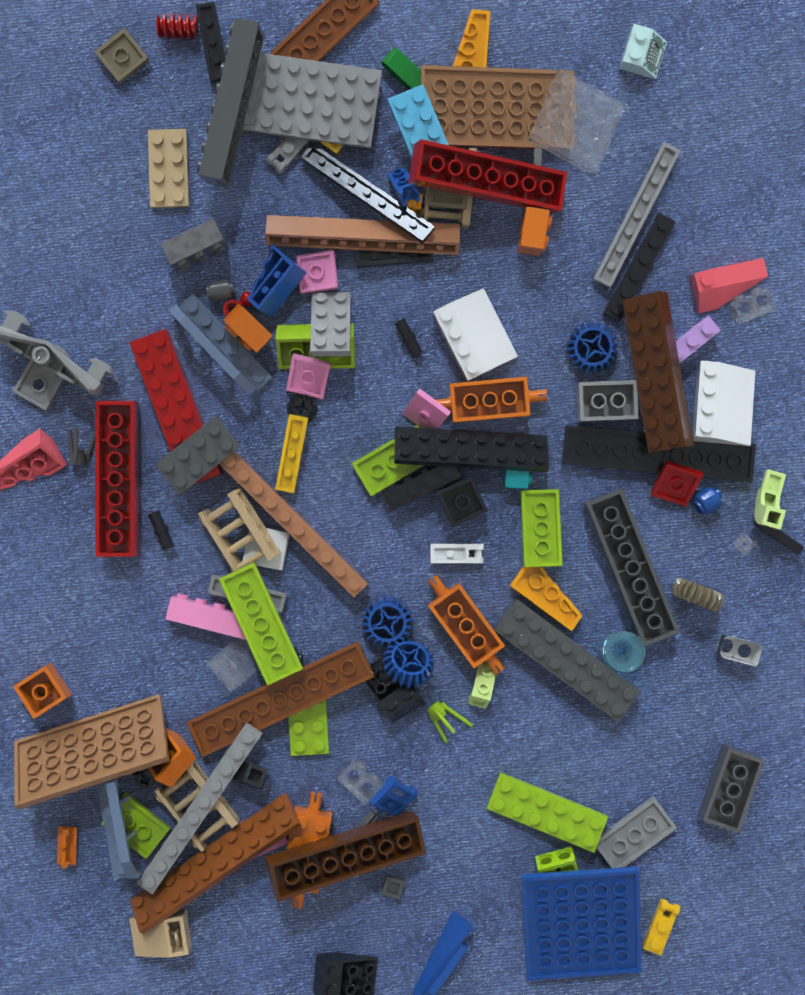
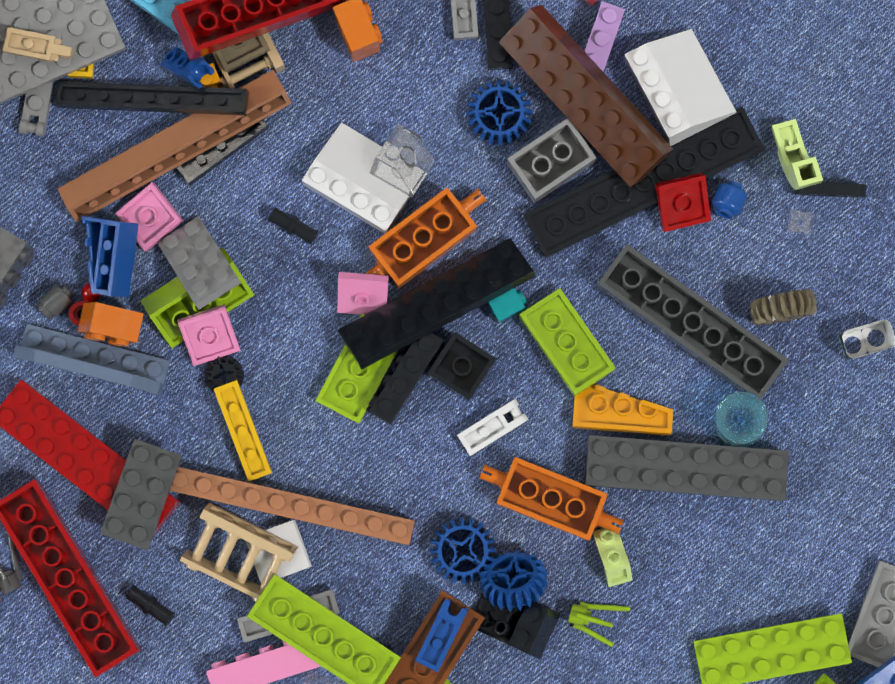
camera: 35 degrees left, 5 degrees down
(311, 108) = (35, 45): none -> tan hinge
(337, 672) = (441, 636): none -> blue plate
(508, 340) = (403, 161): none -> clear slope

